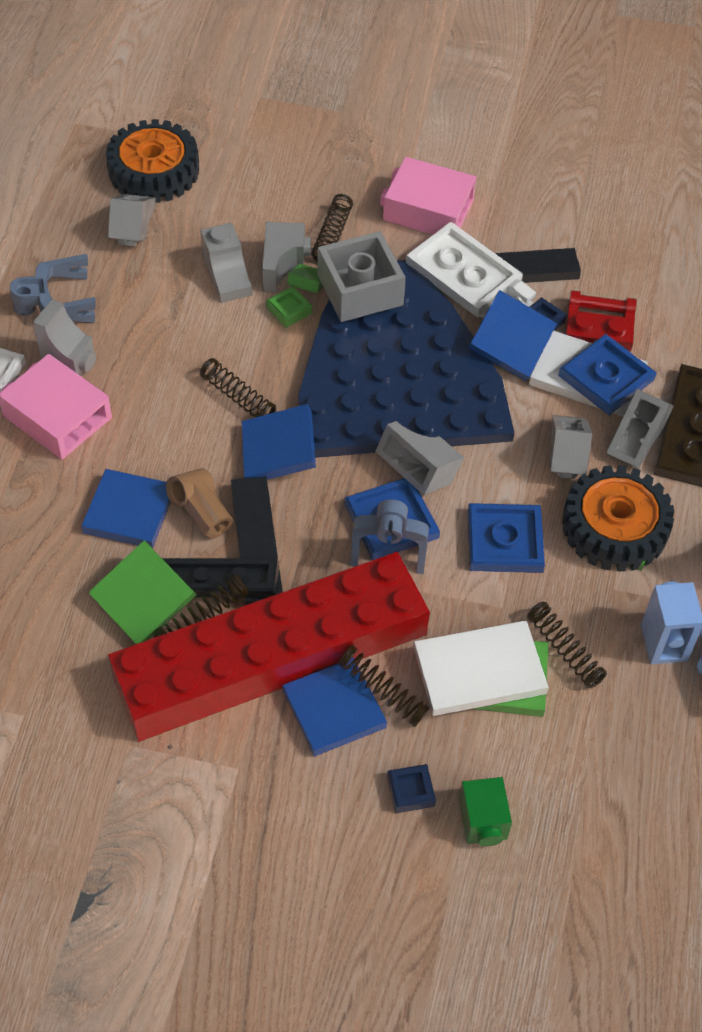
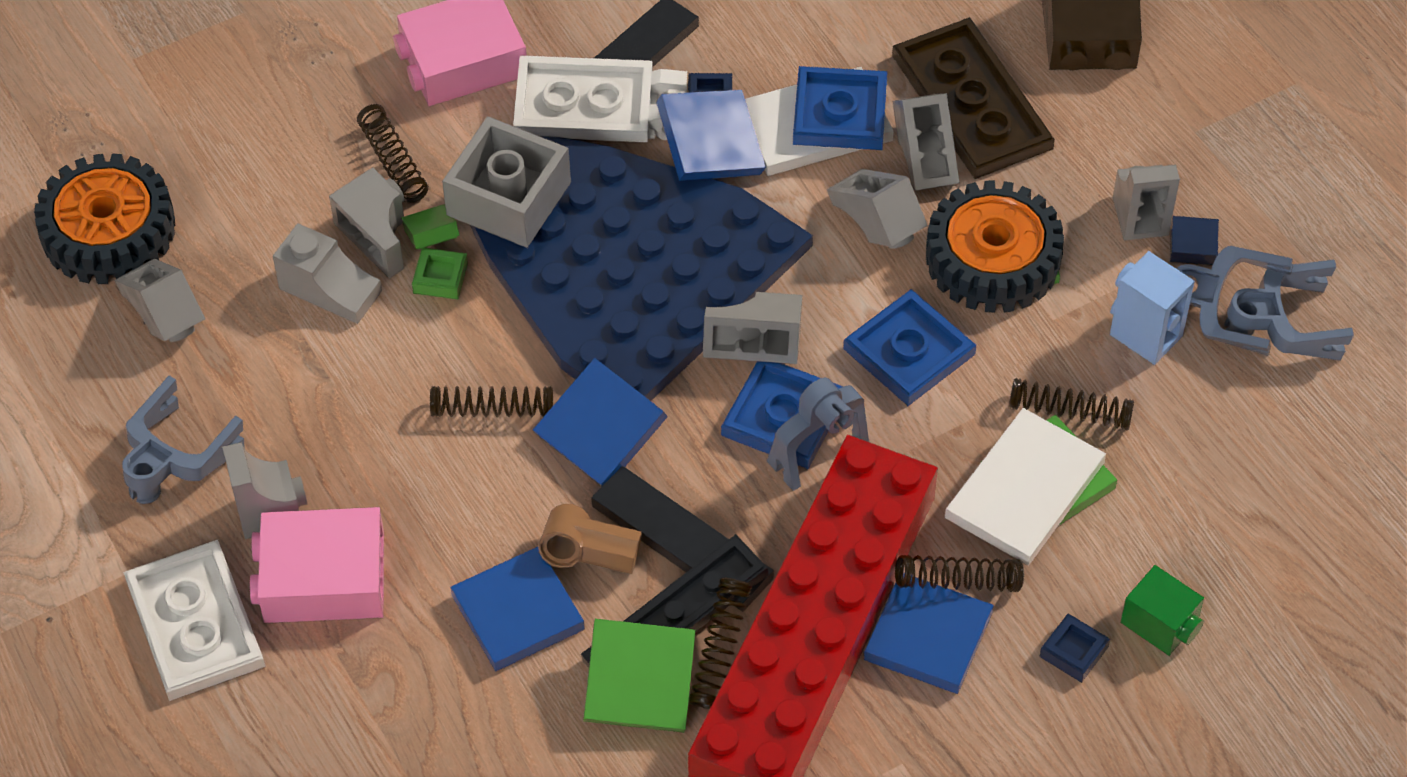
camera: 40 degrees left, 0 degrees up
(593, 326) = (774, 66): red plate -> none

